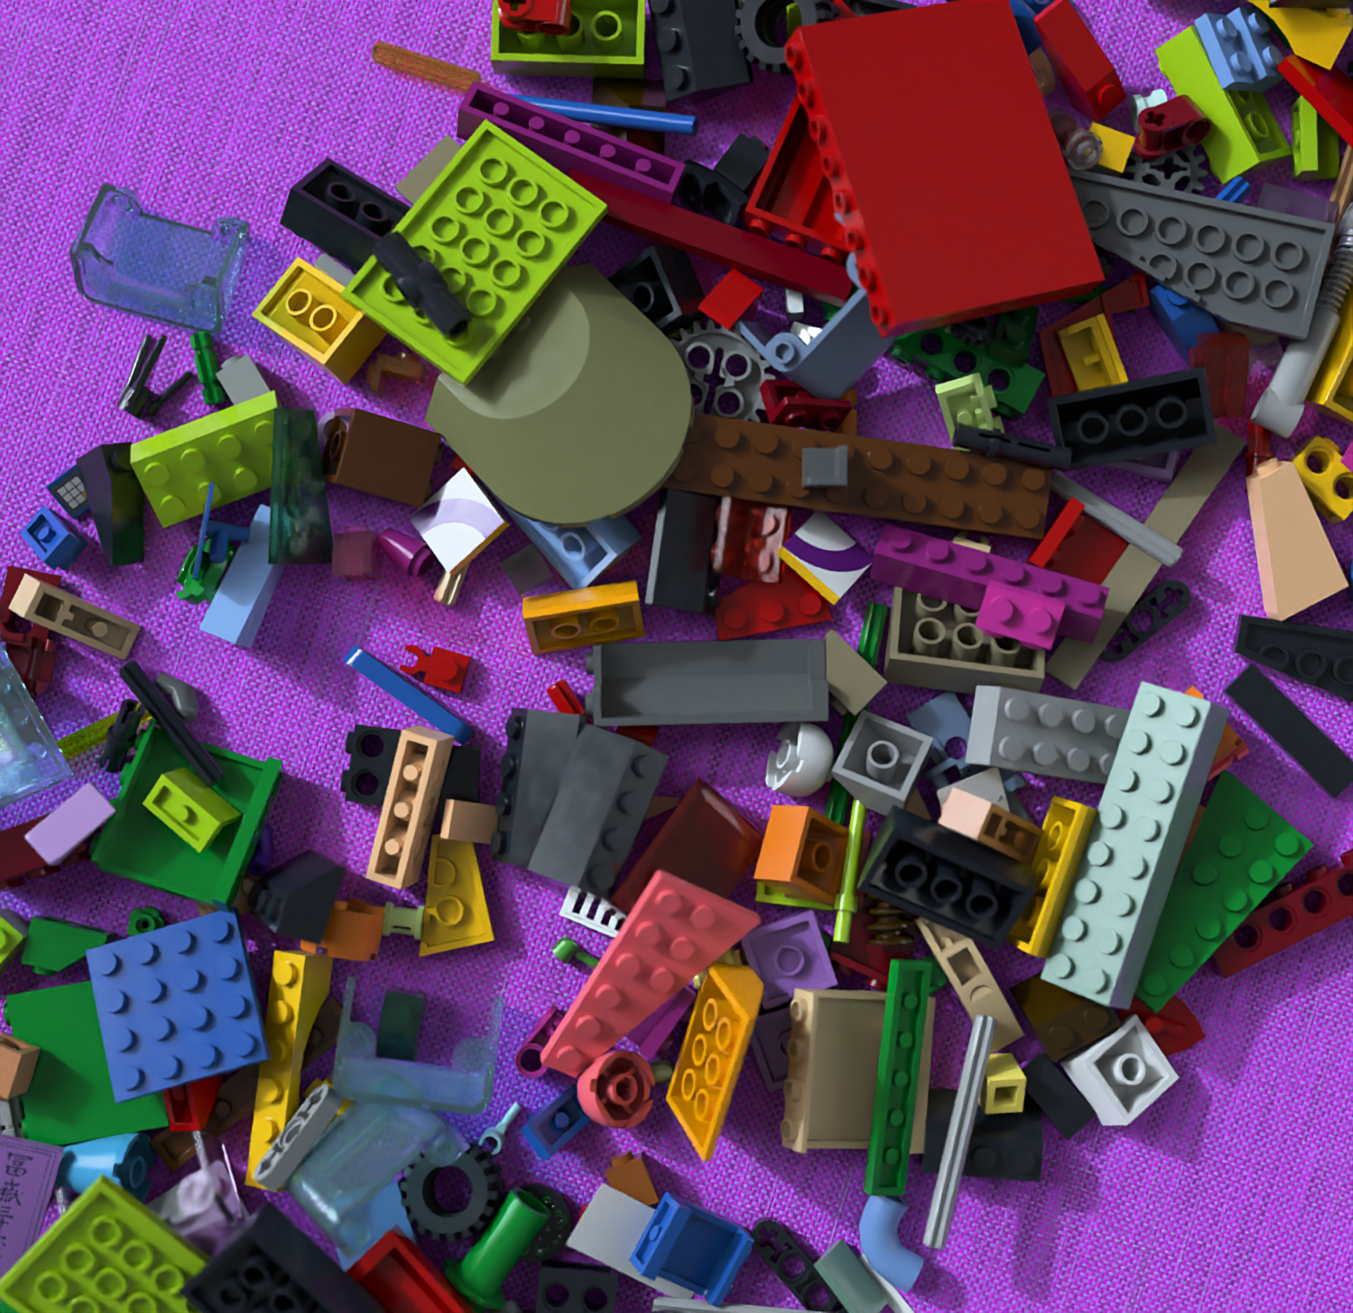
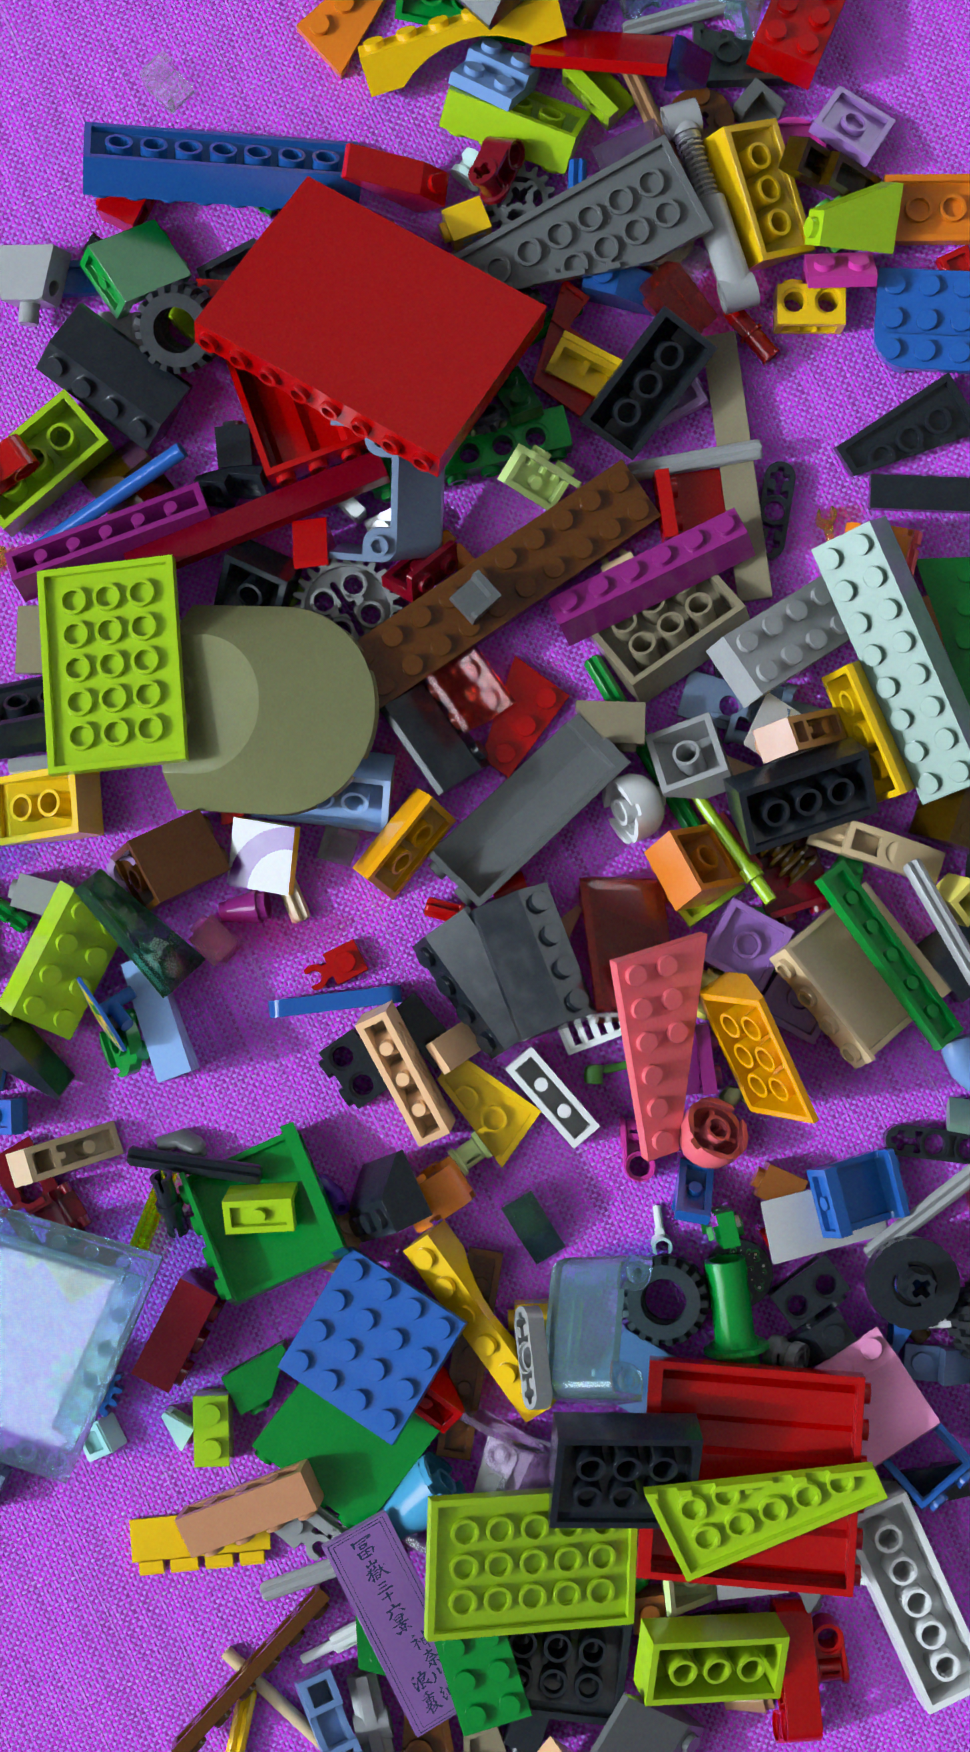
camera: 45 degrees left, 0 degrees up
(70, 824) = (192, 1289): lavender slope -> none
(139, 915) = (290, 1312): green plate -> none
(402, 367) = (130, 788): clear orange bracket -> none
(421, 285) = (98, 718): black piece -> none
(453, 1089) = (609, 1227): clear light blue windscreen -> none
(512, 937) = (552, 1097): none -> white brick
(557, 1178) = (728, 1228): none -> green piece
(825, 557) = (528, 657): tile -> none
(998, 444) = (572, 480): black pin -> none
(1019, 615) = (692, 578): dark pink bracket -> none
(1042, 71) = (377, 205): light nougat tile -> none
(1076, 144) = (447, 234): clear piece -> none
(1176, 673) = (827, 525): none -> hand
(1290, 543) = (825, 371): light nougat slope -> none

